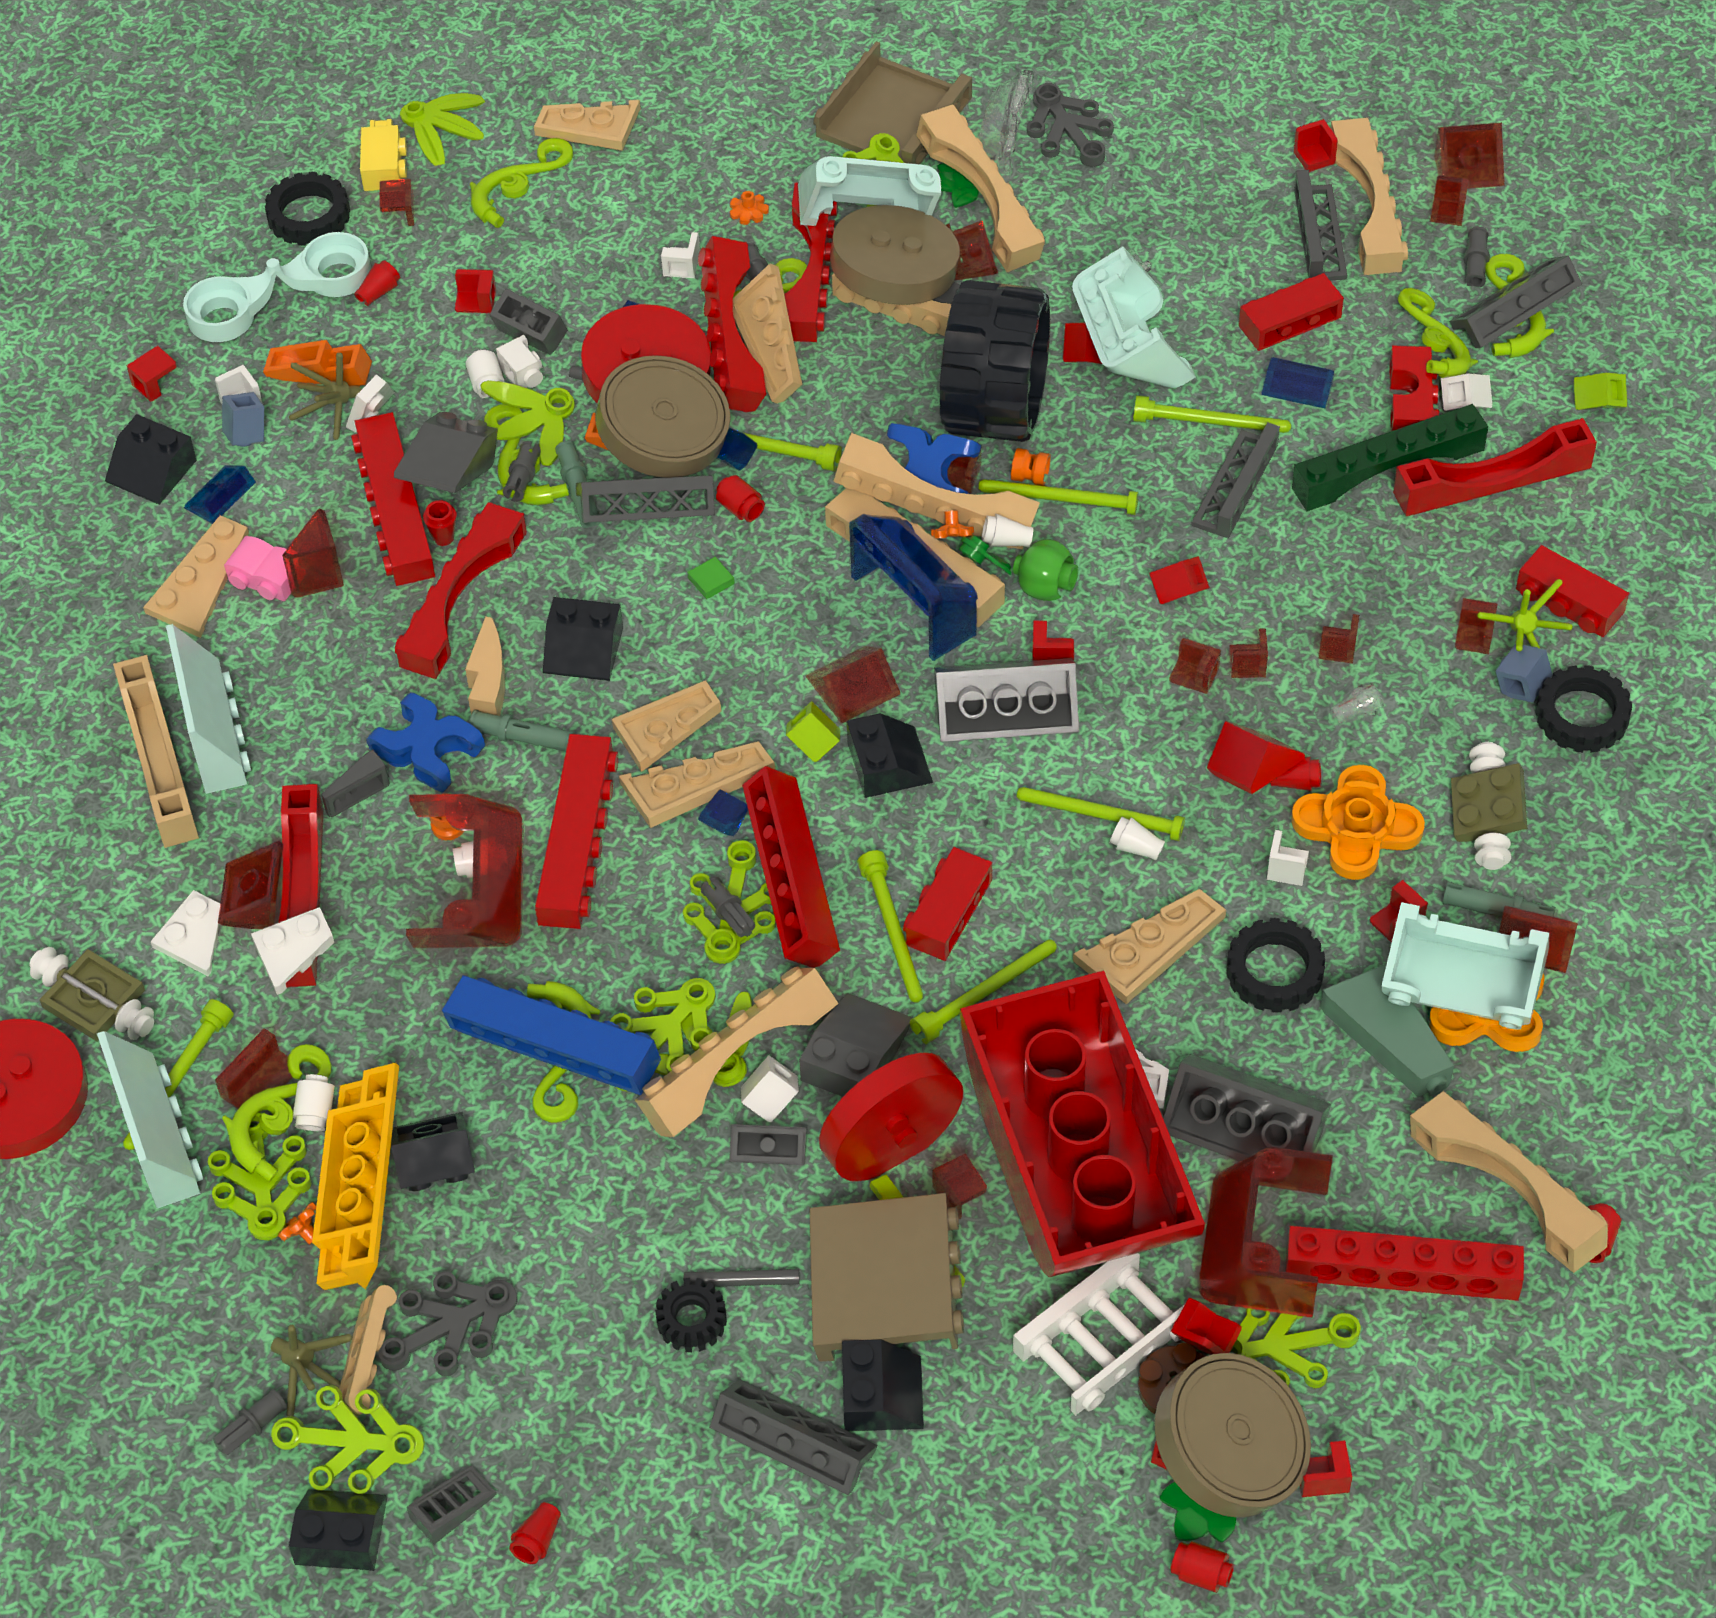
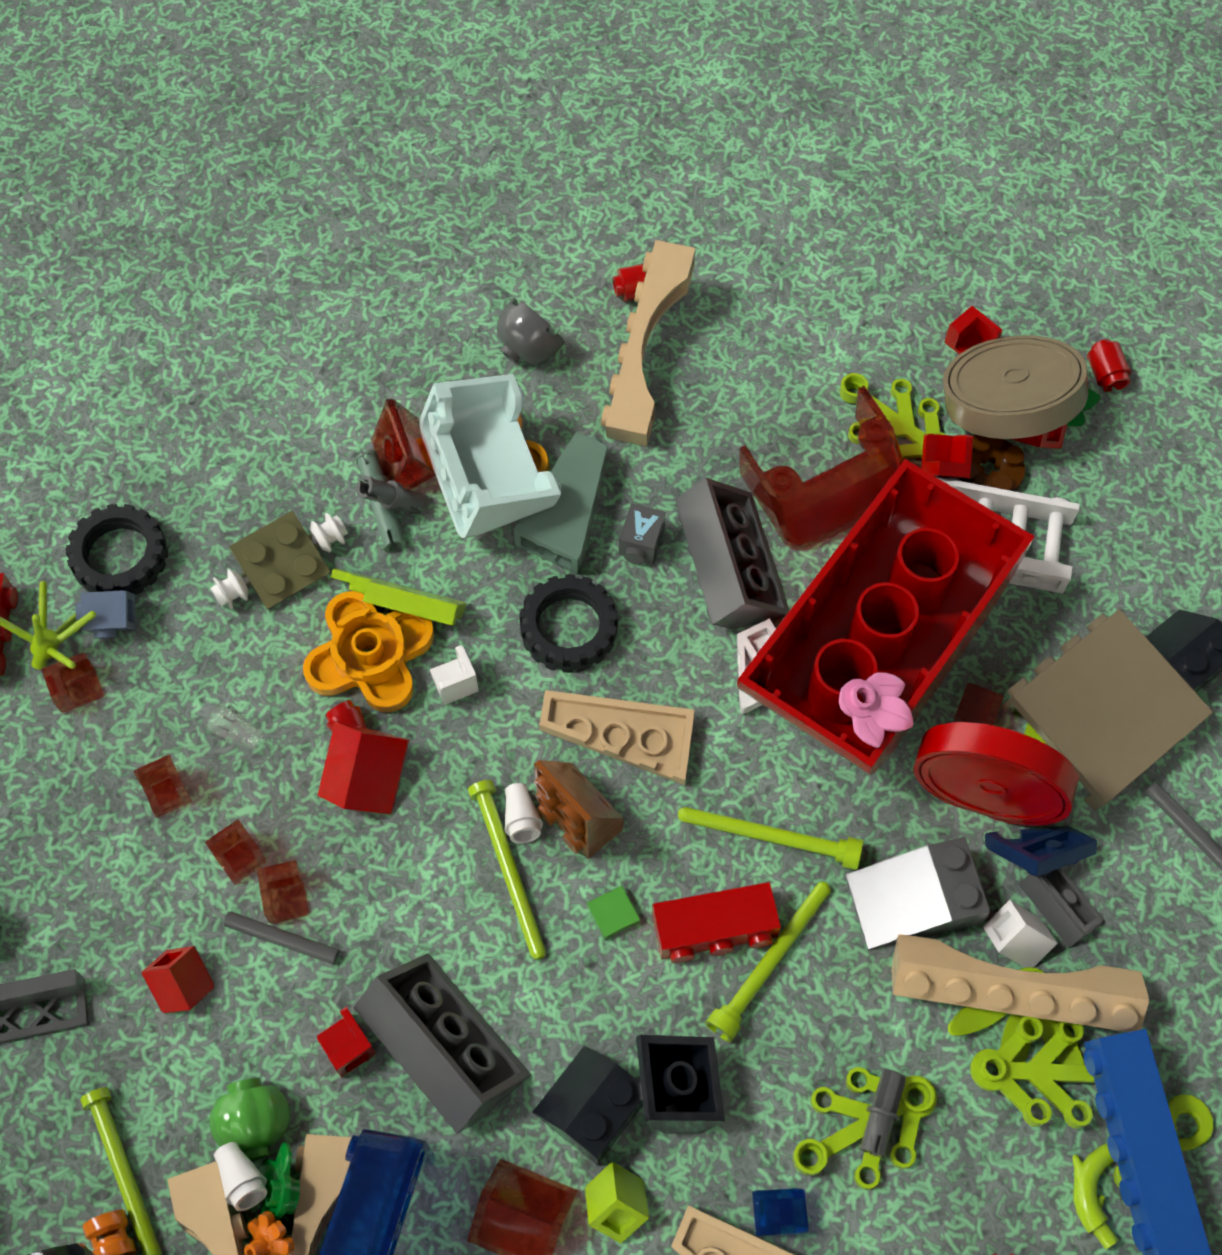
camera: 130 degrees left, 10 degrees up
(790, 868) = (792, 1092): red brick -> none
(805, 1162) = (1043, 849): none -> dark blue wing
(855, 792) = (680, 1083): none -> black slope
(999, 1039) = (881, 707): none -> bright pink plate
(1012, 854) = (613, 912): none -> bright green tile
(1106, 852) = (575, 807): none -> dark orange slope
(1160, 657) = (281, 937): none -> dark grey bar
(1317, 1063) = (641, 534): none -> dark grey brick
(1386, 865) = (403, 598): none -> lime piece
(1386, 918) = (446, 563): red panel -> none
(1406, 1262) = (772, 378): red brick -> none
(1491, 896) = (391, 495): none -> dark grey pin
(1601, 1095) = (526, 335): none -> dark grey cylinder

